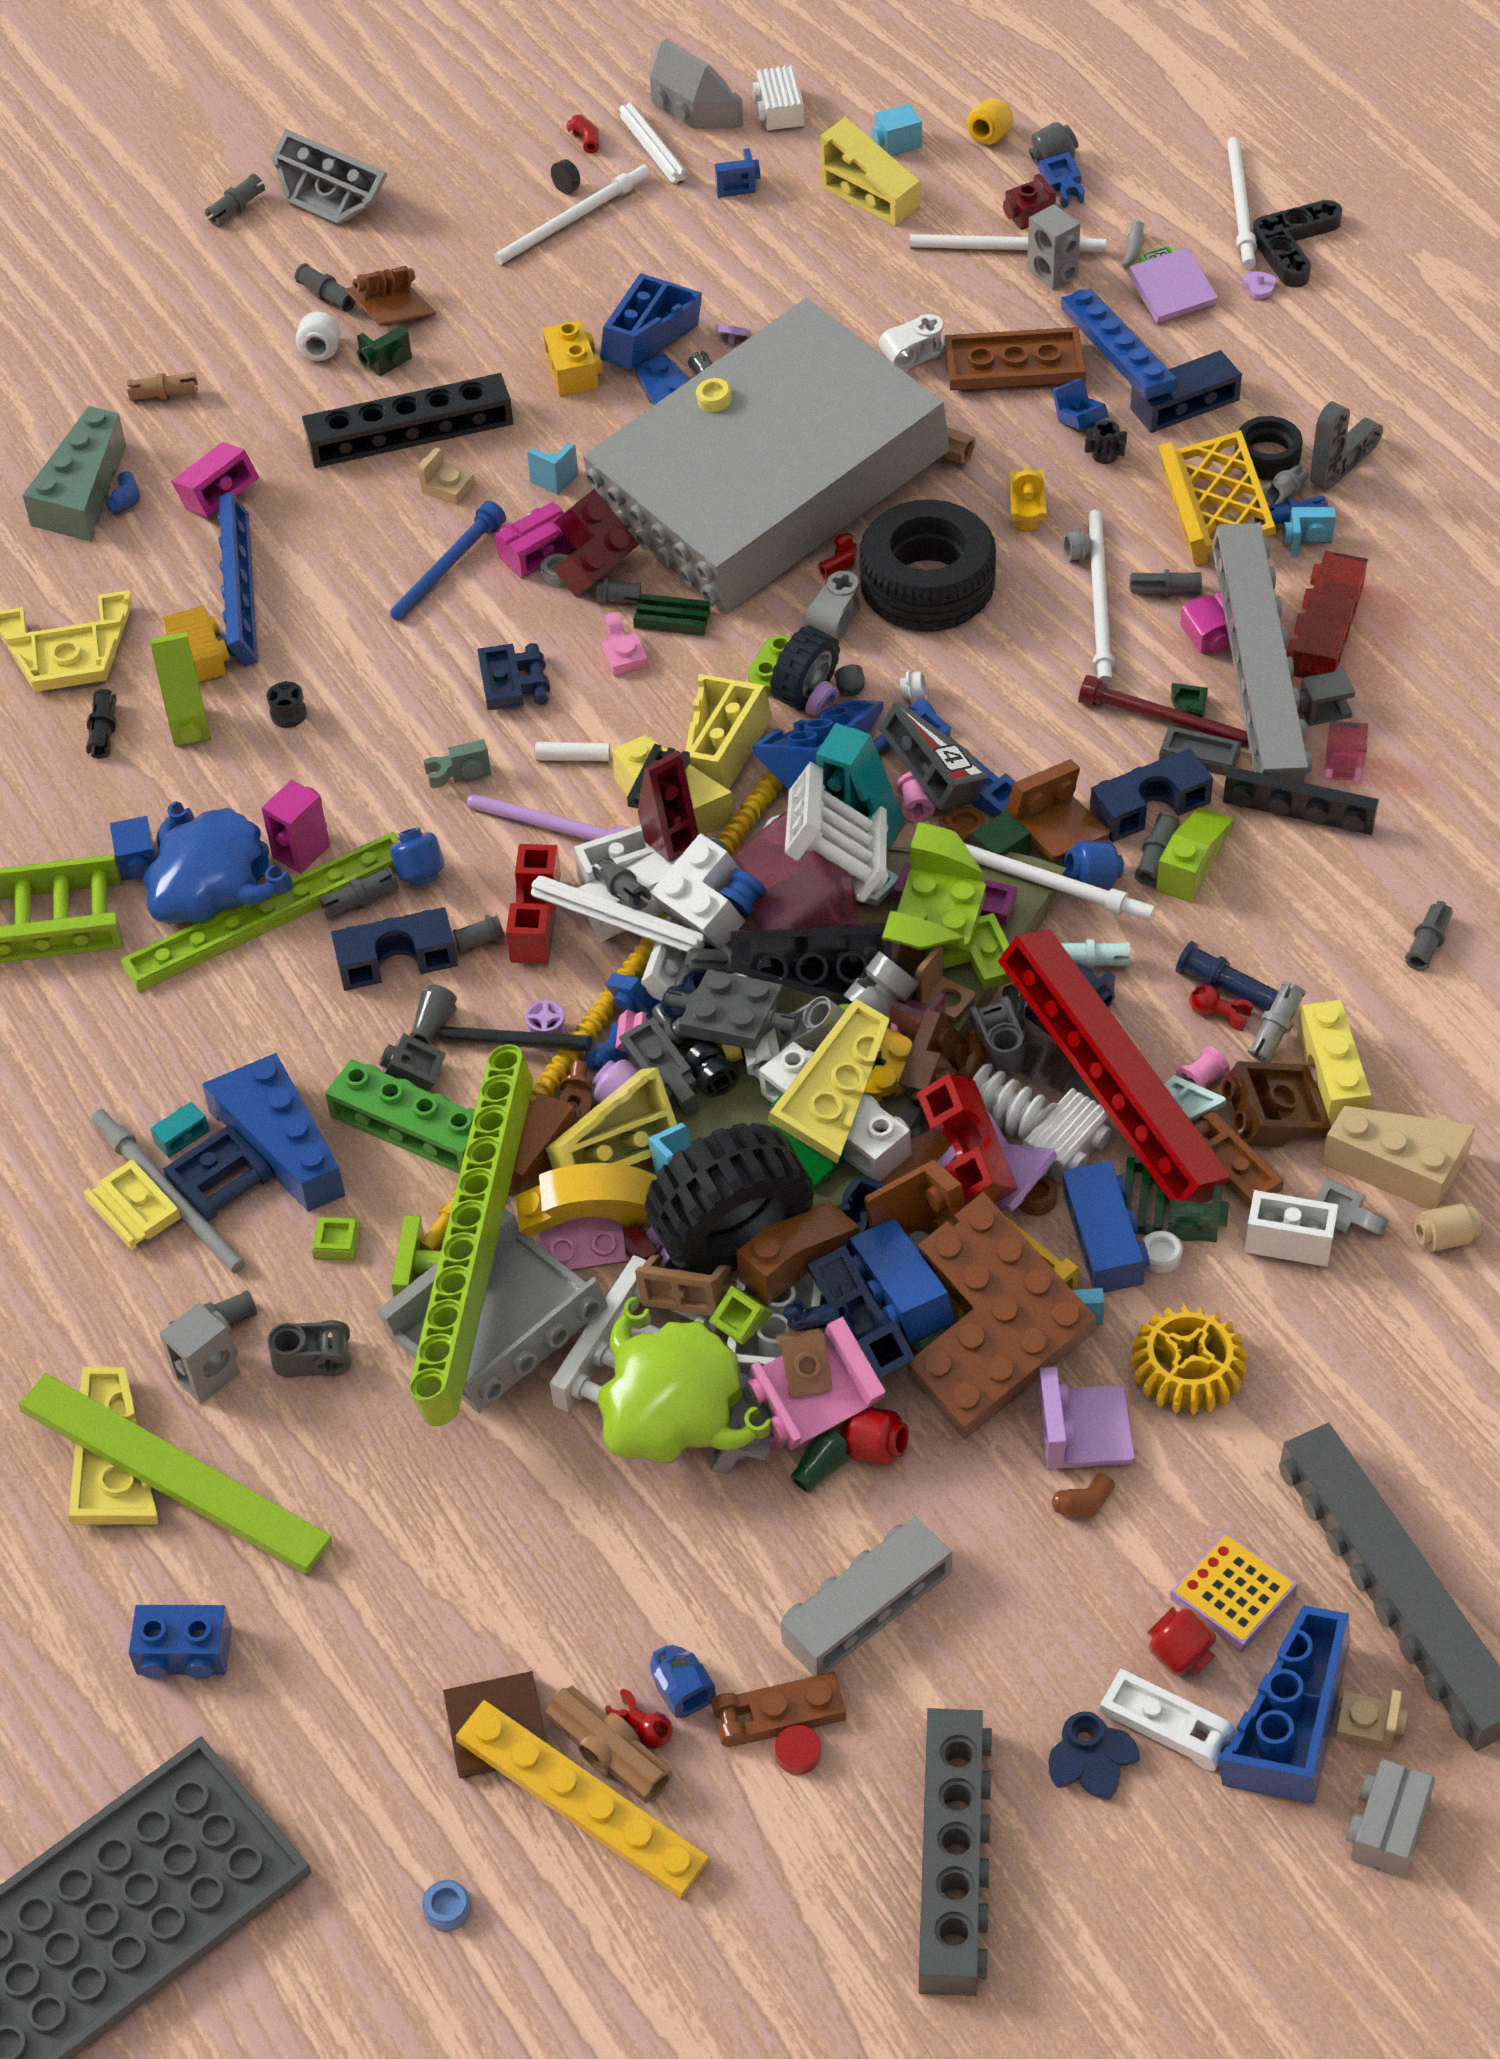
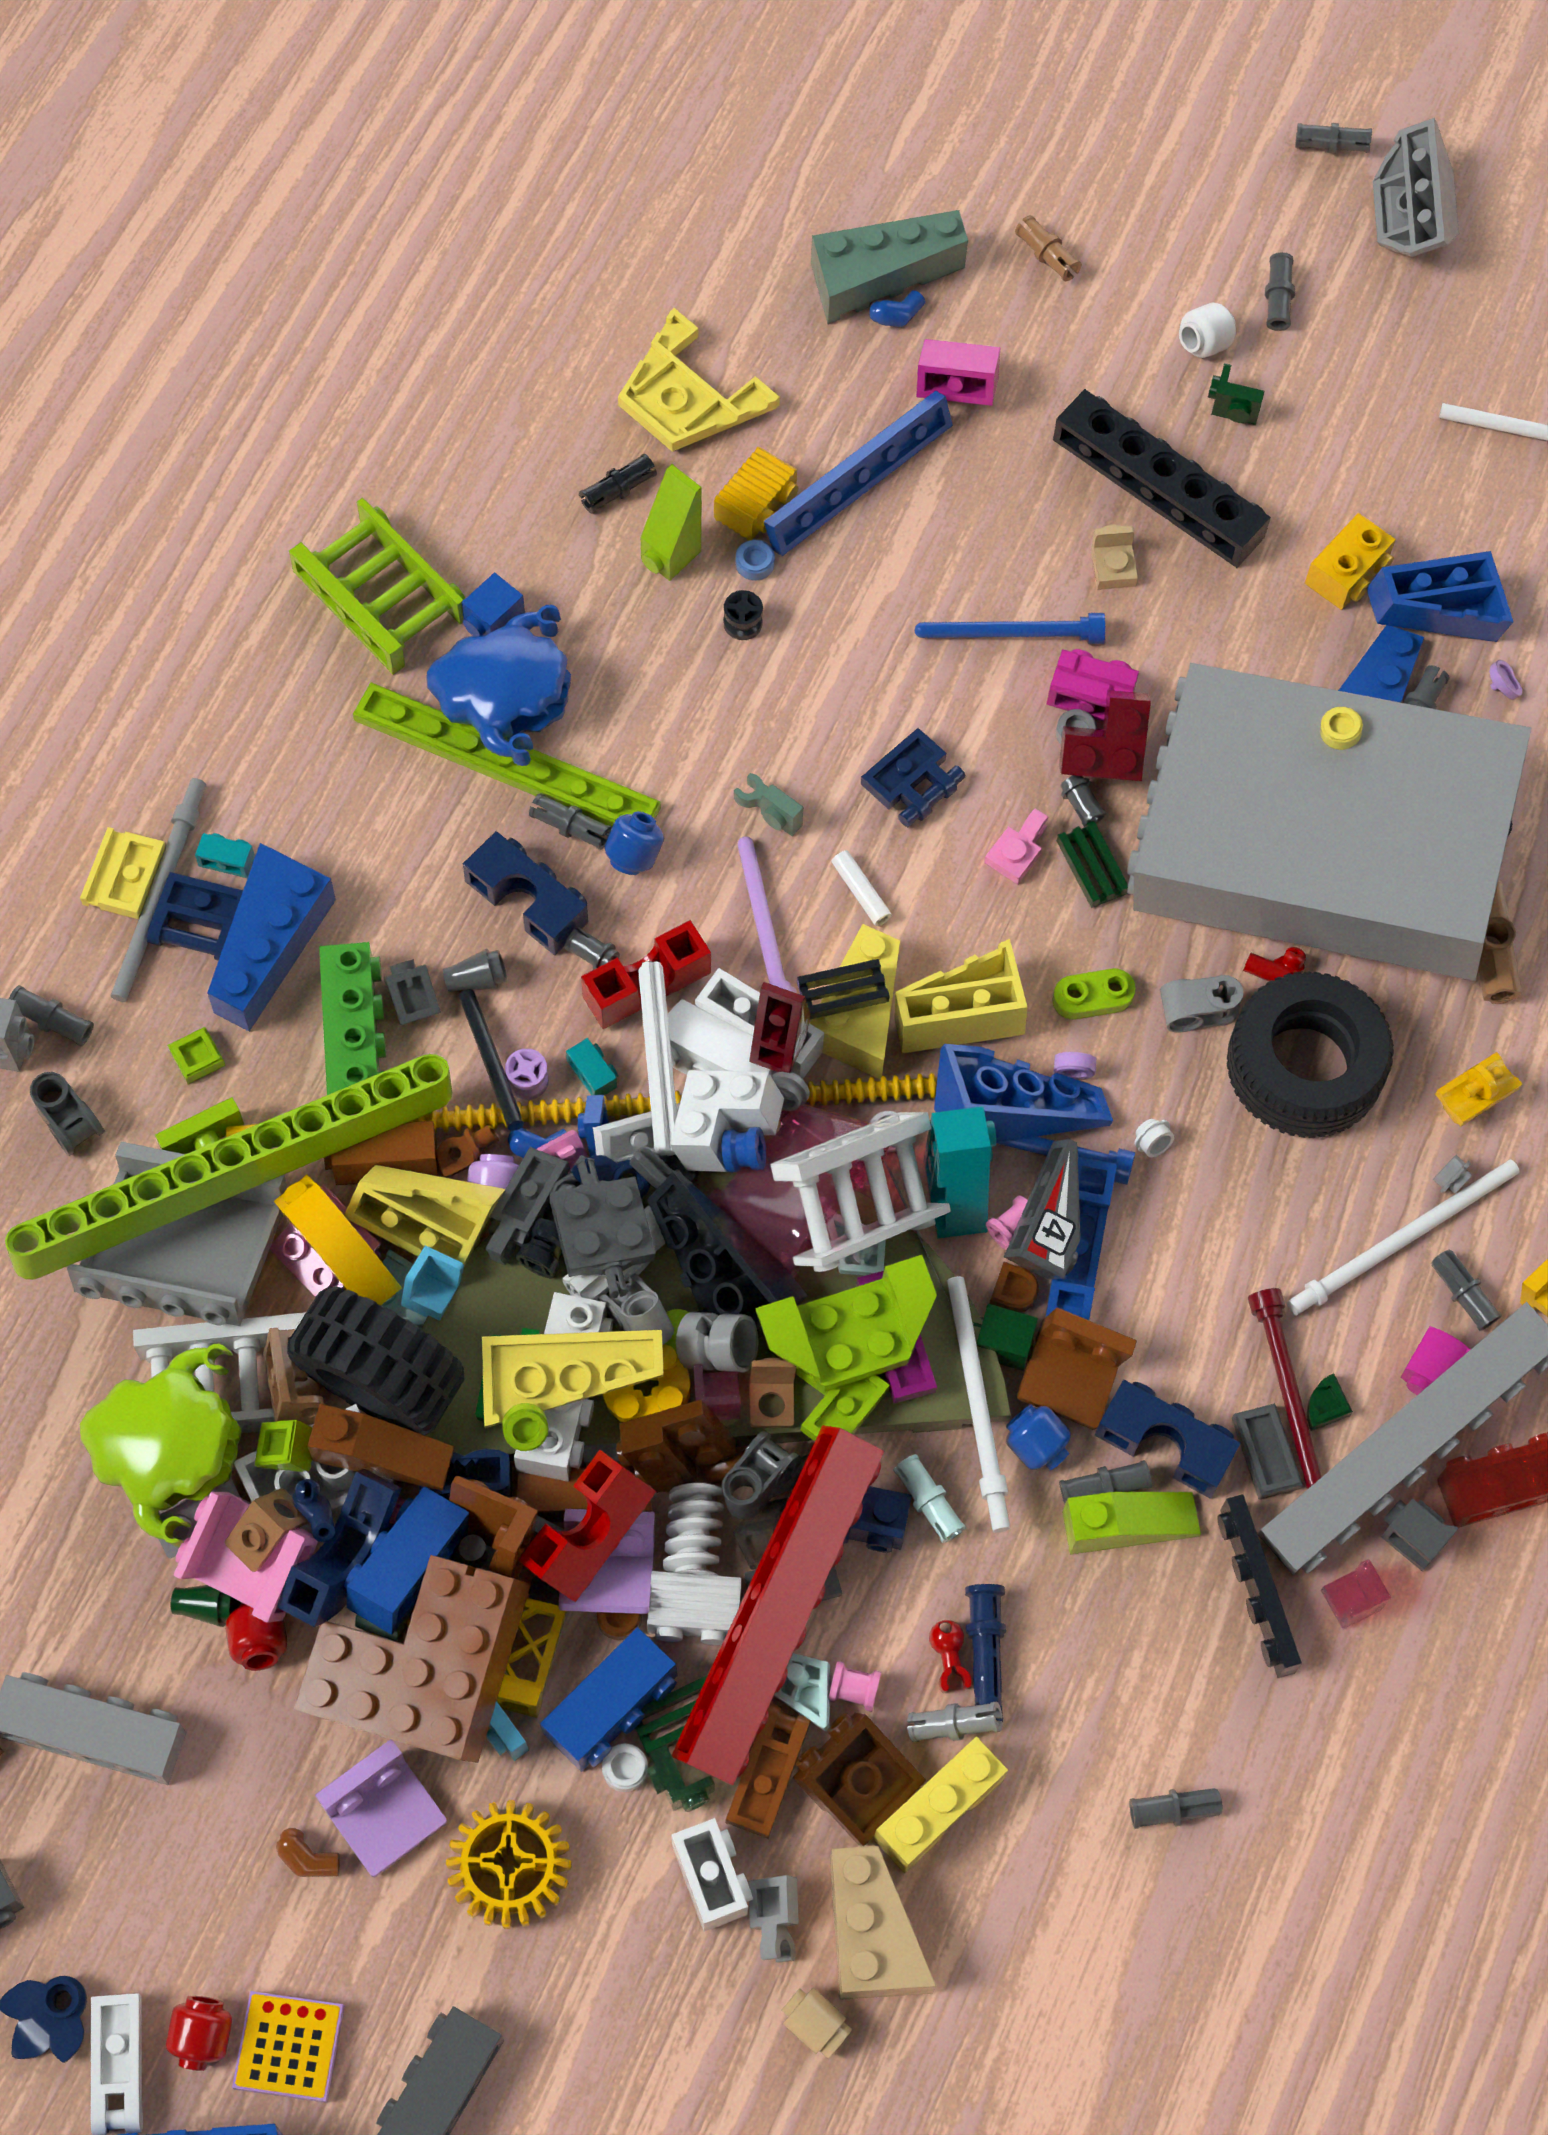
camera: 50 degrees right, 15 degrees up
(245, 678) = (755, 559): none -> medium blue tile
(296, 826) = (595, 722): dark pink brick -> none
(389, 296) = (1305, 357): dark orange hinge -> none
(552, 470) = (1195, 642): medium azure panel -> none
(576, 984) = (591, 1068): none -> teal piece
(621, 883) = (693, 1037): dark grey pin -> none
(803, 665) = (1087, 1026): black wheel -> none
(850, 679) = (1120, 1075): dark grey hinge -> none
(862, 1128) = (525, 1427): none -> lime tile

